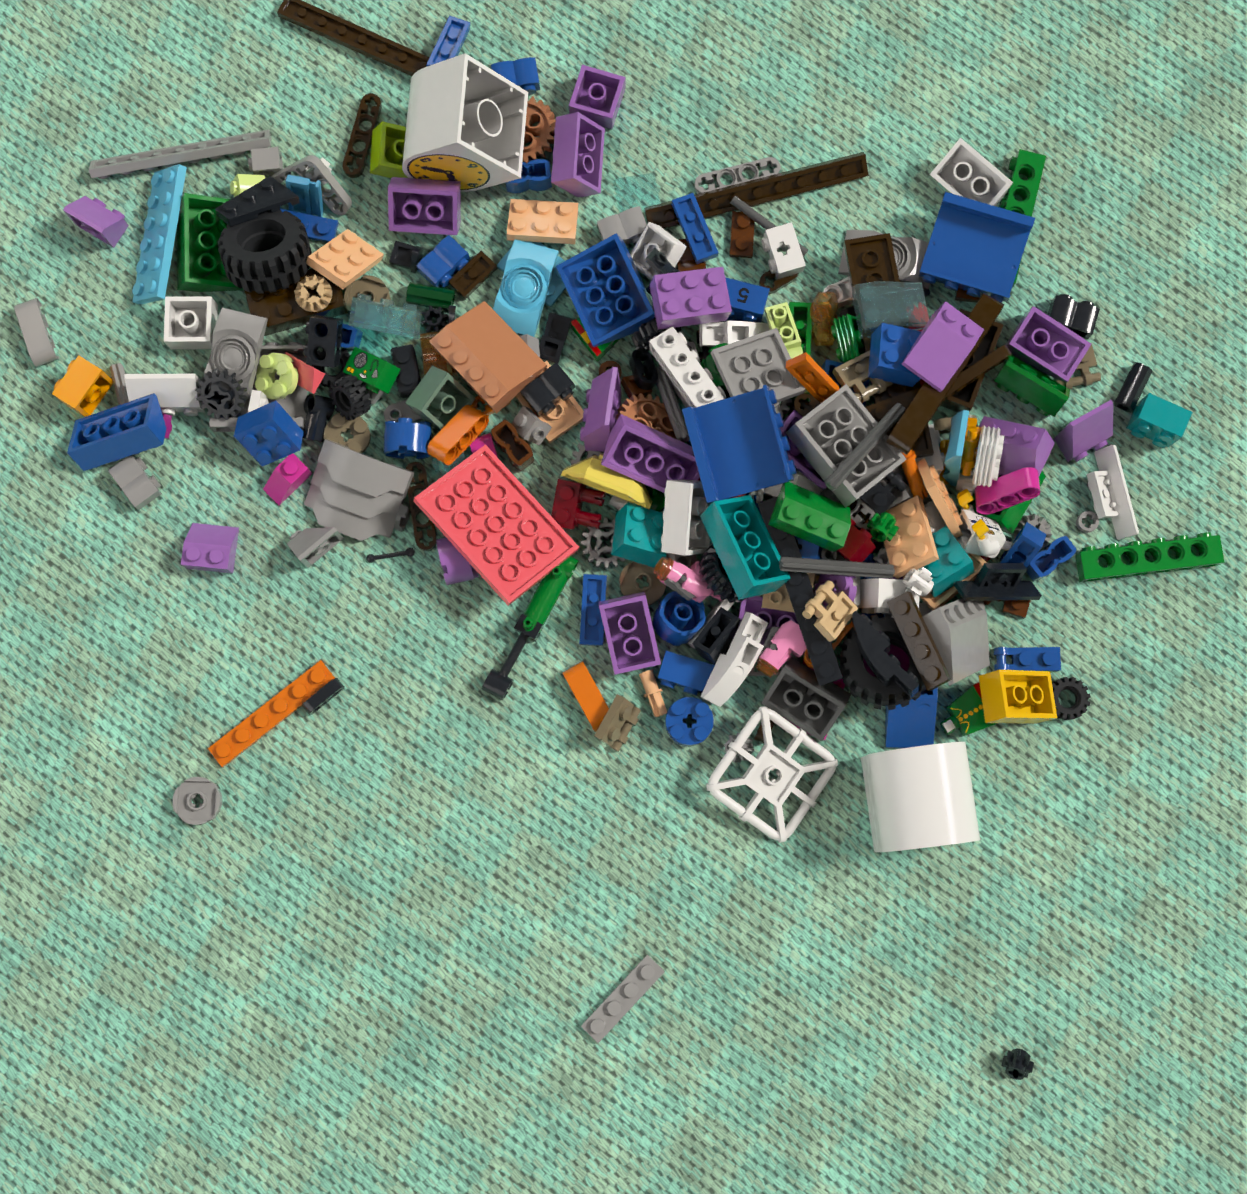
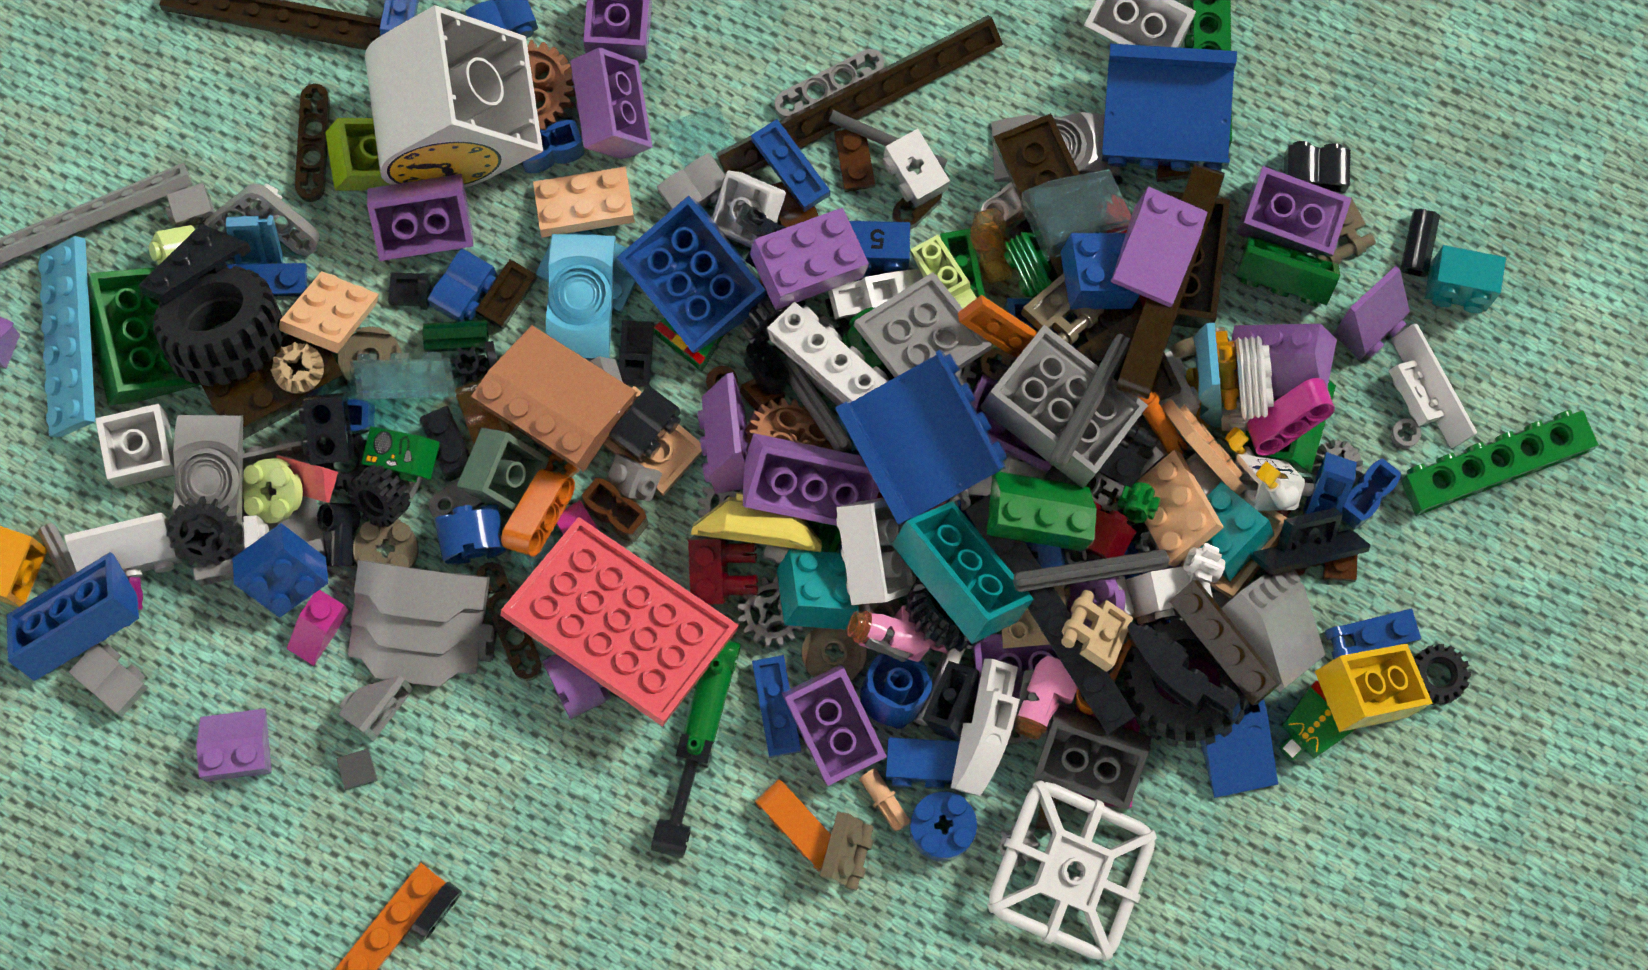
camera: 15 degrees left, 5 degrees down
(292, 584) = (357, 769): none -> dark grey tile
(409, 552) = (507, 687): black hinge -> none
(920, 797) = (1277, 852): white brick -> none
(979, 369) = (1214, 264): dark brown beam -> none

